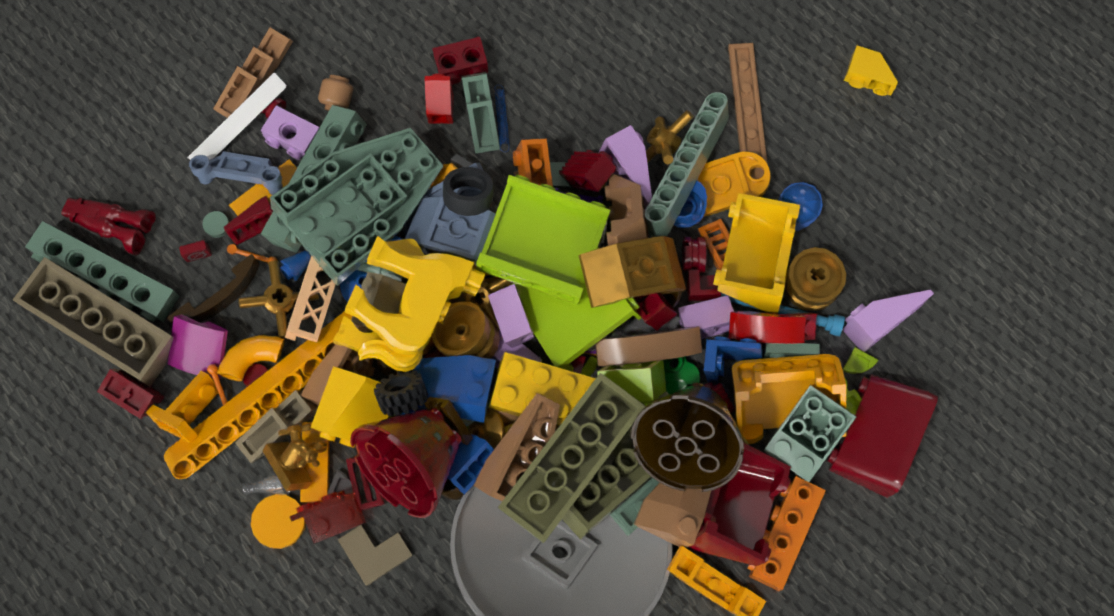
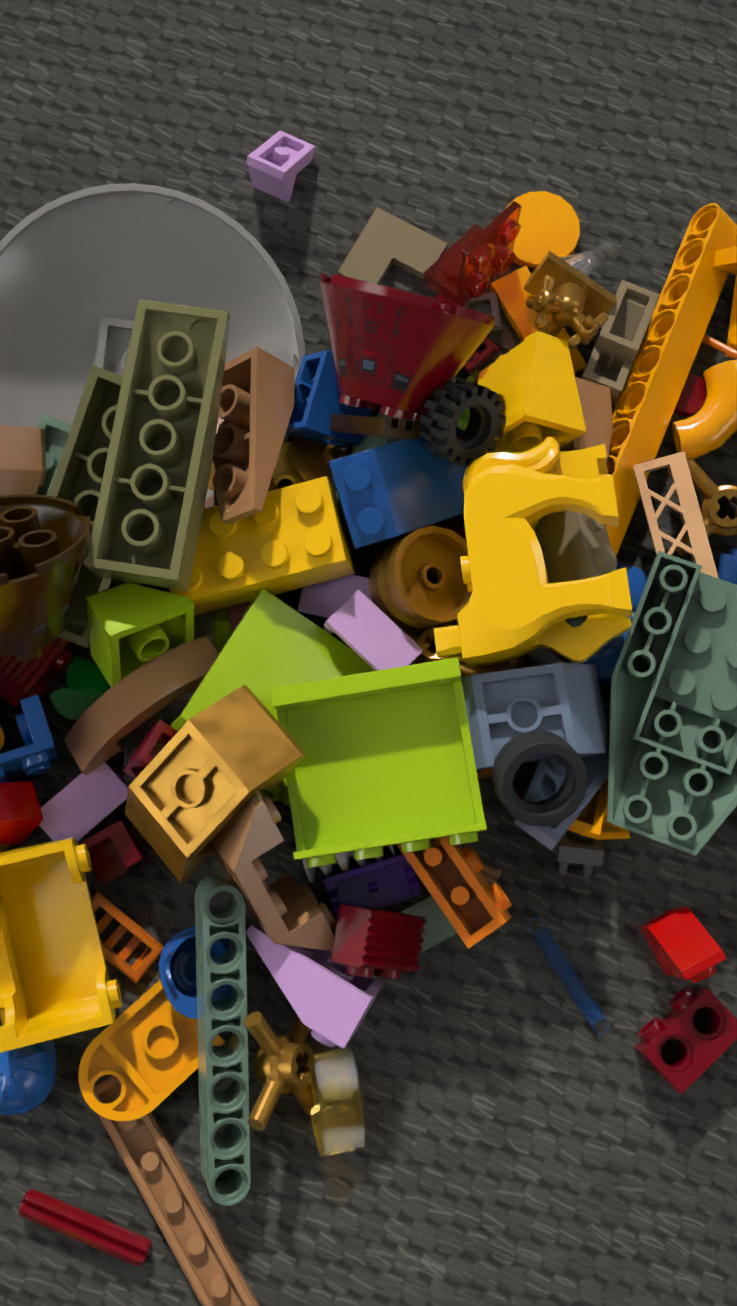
camera: 150 degrees right, 5 degrees up
(480, 112) = (607, 964): sand green slope -> none
(647, 111) = (338, 1103): none -> clear yellow slope
(694, 254) = (147, 894): dark red wheel -> none
(796, 121) = (84, 1227): none -> dark red axle

